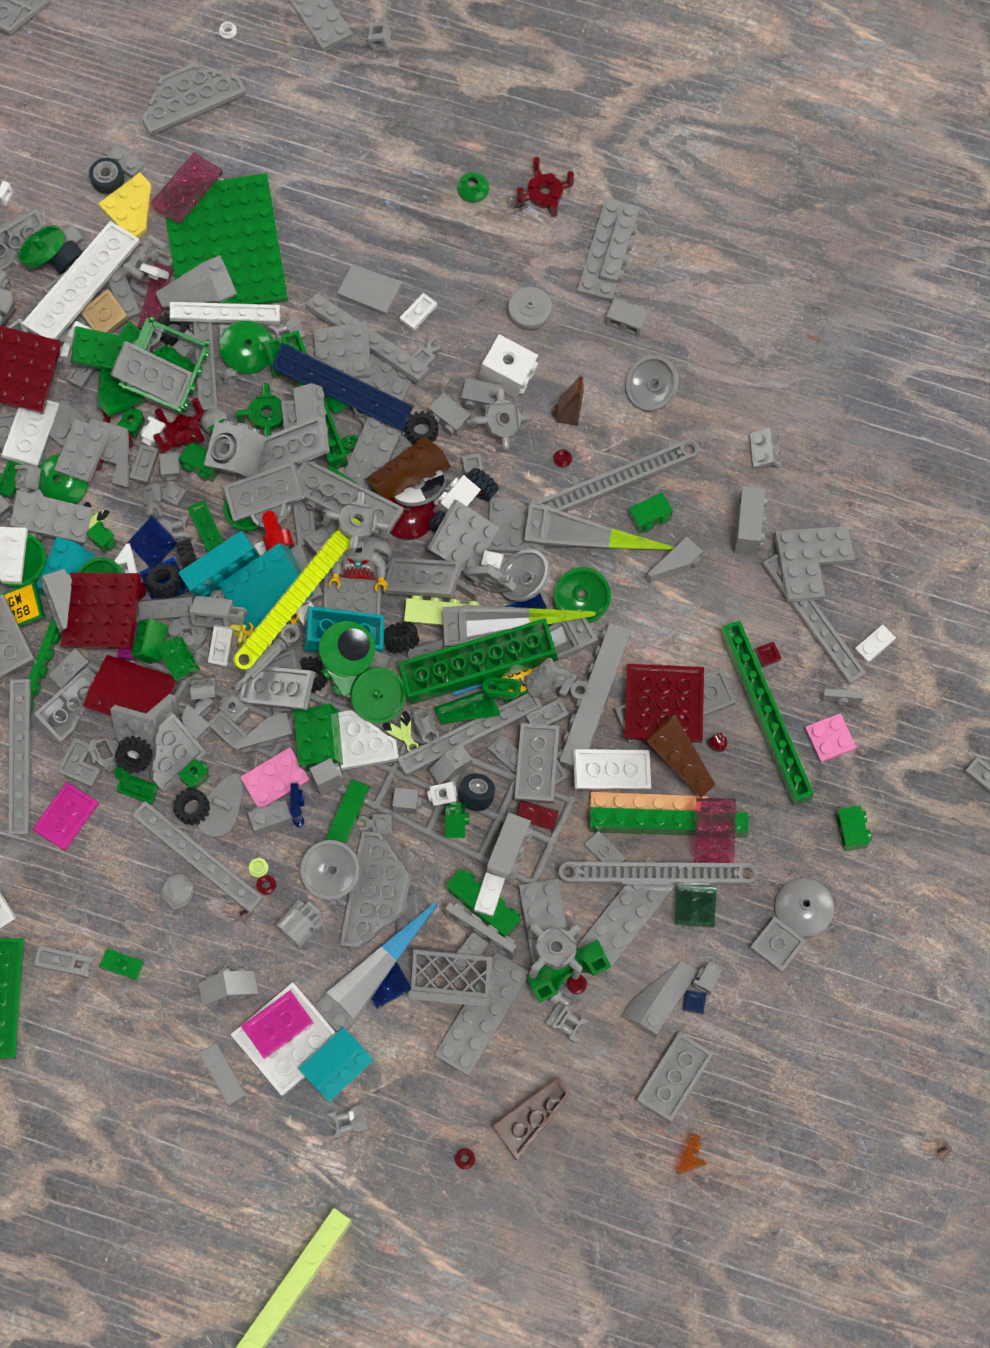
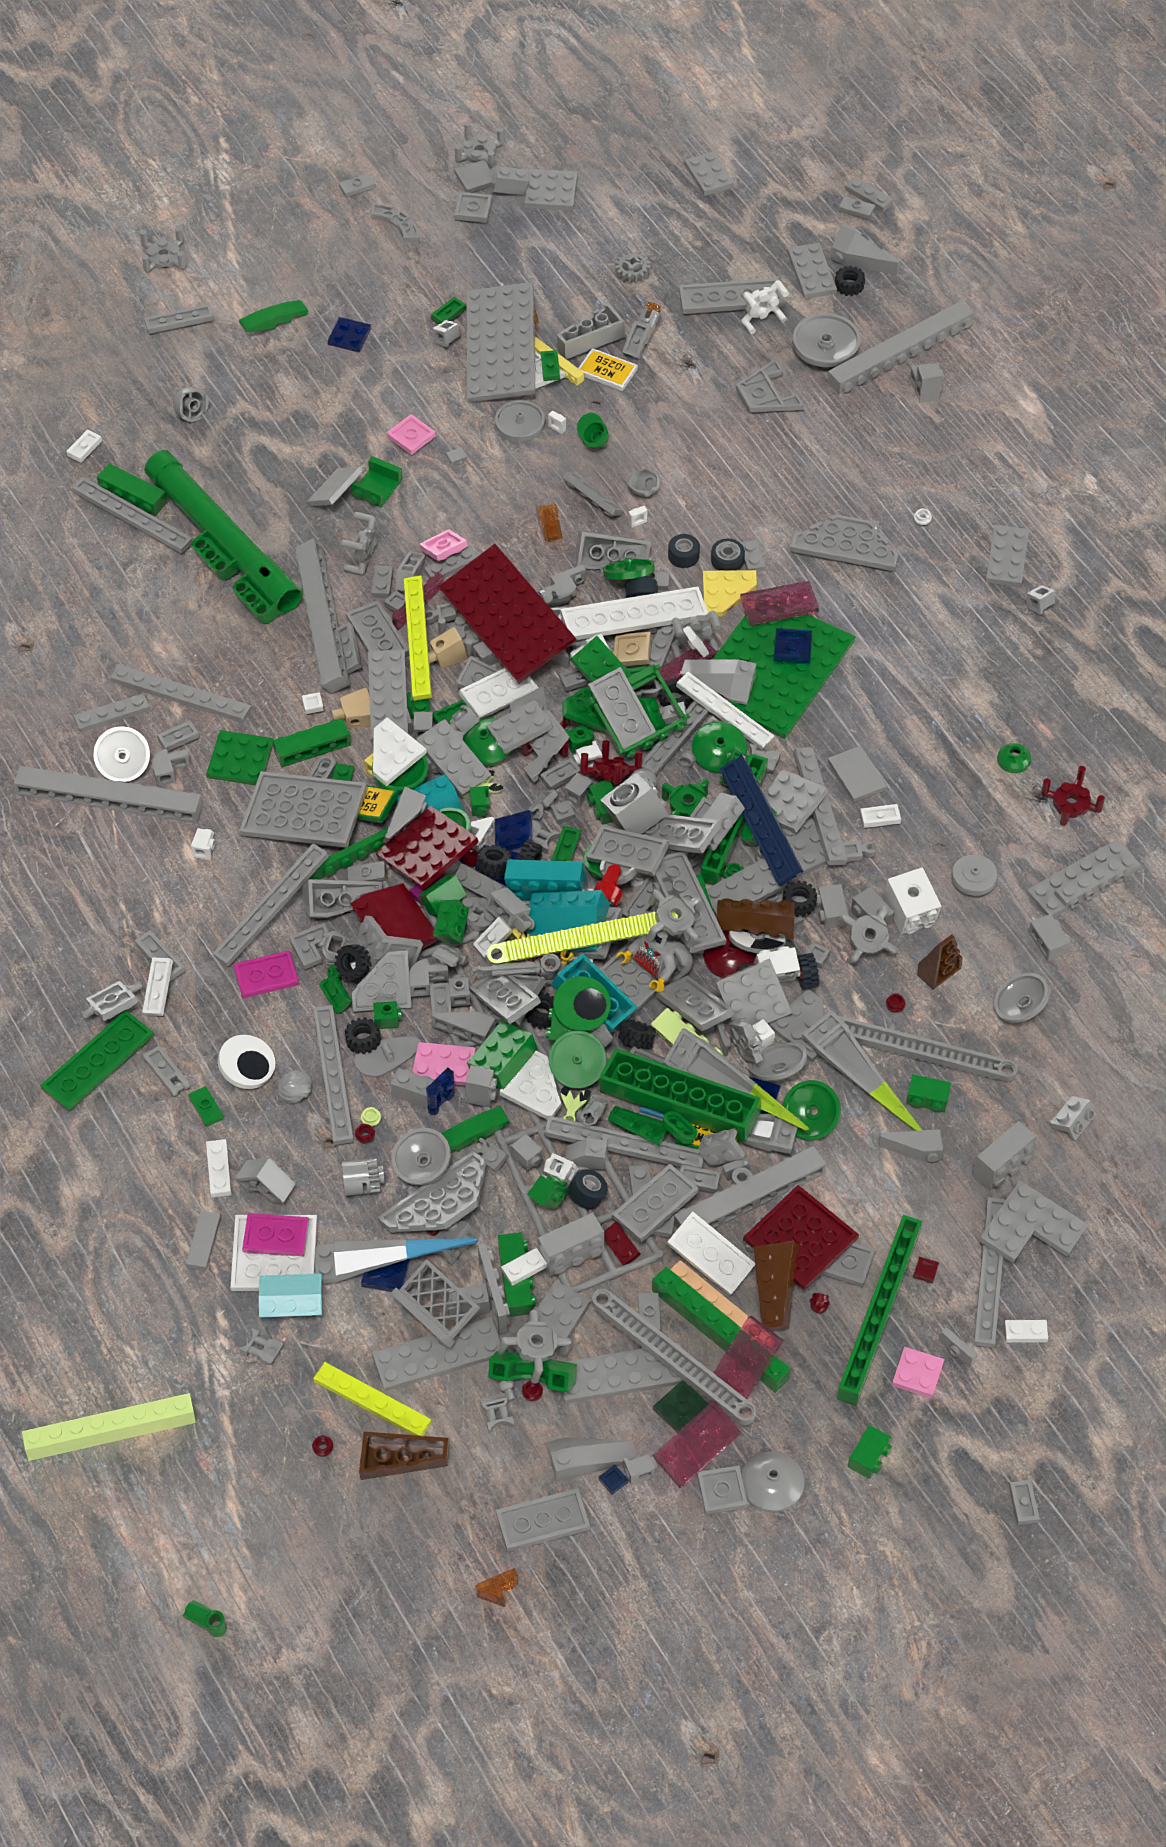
camera: 40 degrees right, 15 degrees down
(68, 197) = (683, 550): none -> black wheel
(121, 902) = (246, 1061): none -> white piece
(179, 1006) = (218, 1168): none -> white plate
(229, 217) = (793, 645): none -> clear blue plate
(467, 1091) = (372, 1400): none -> neon yellow plate
(731, 925) = (696, 1444): none -> clear pink plate

